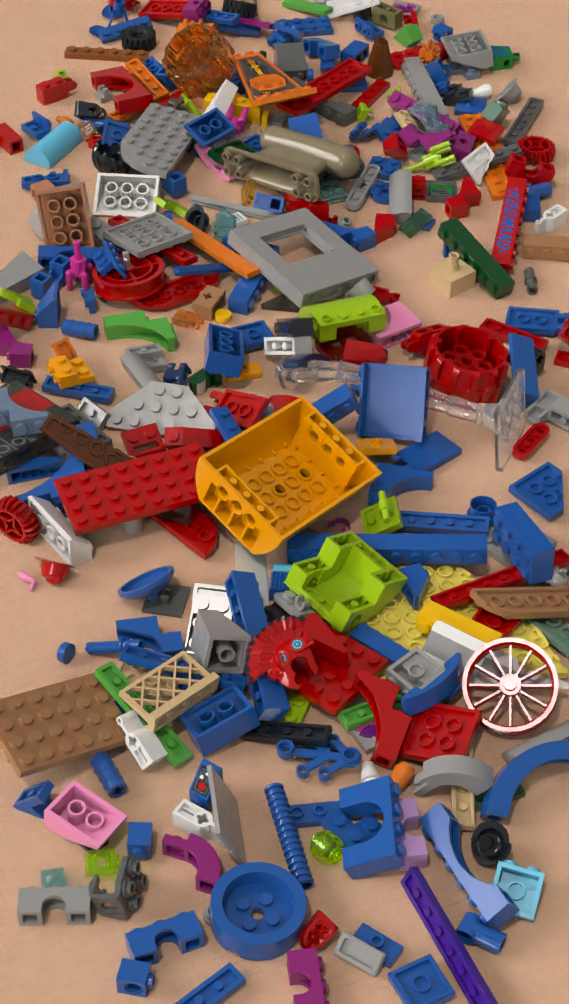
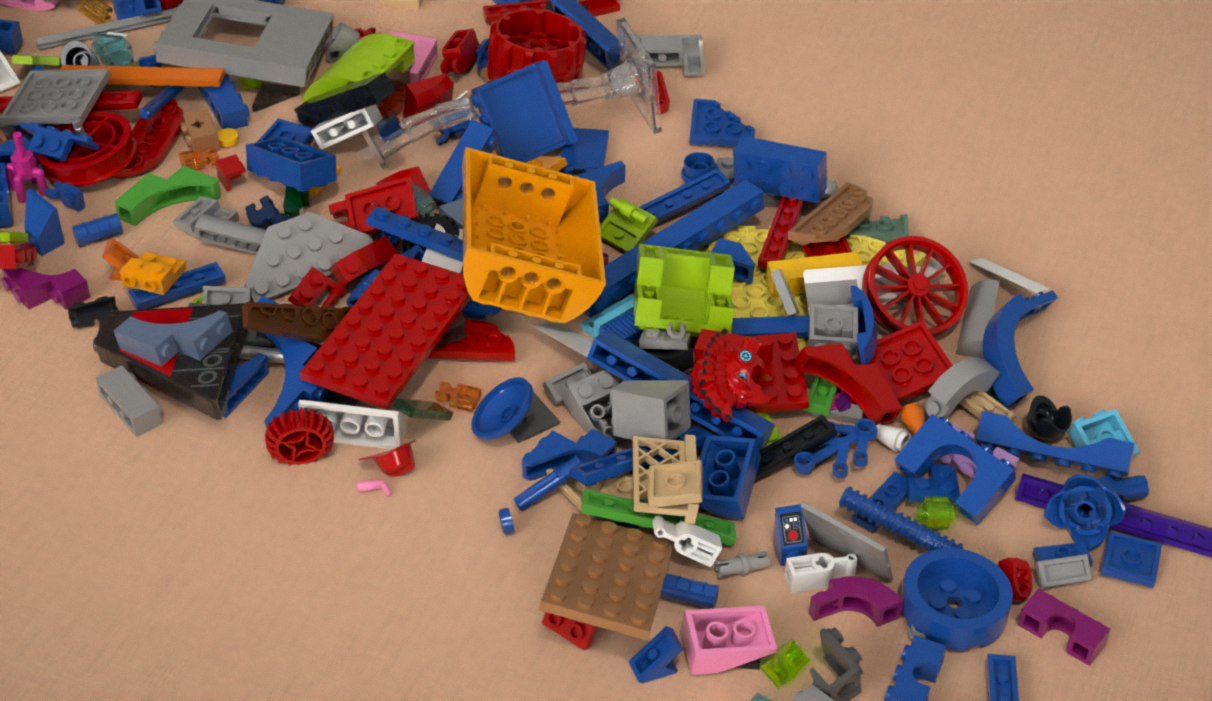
camera: 45 degrees left, 0 degrees up
(100, 550) = (422, 409): none -> tile
(140, 840) = (790, 620): blue brick -> none
(142, 560) = (461, 397): none -> clear orange plate
(157, 695) = (675, 484): none -> tan plate
(162, 783) = (742, 564): none -> light grey pin
(194, 335) = (228, 169): none -> red panel
(412, 627) = (785, 292): none -> light grey tile
(425, 921) = (1085, 526): none -> blue brick

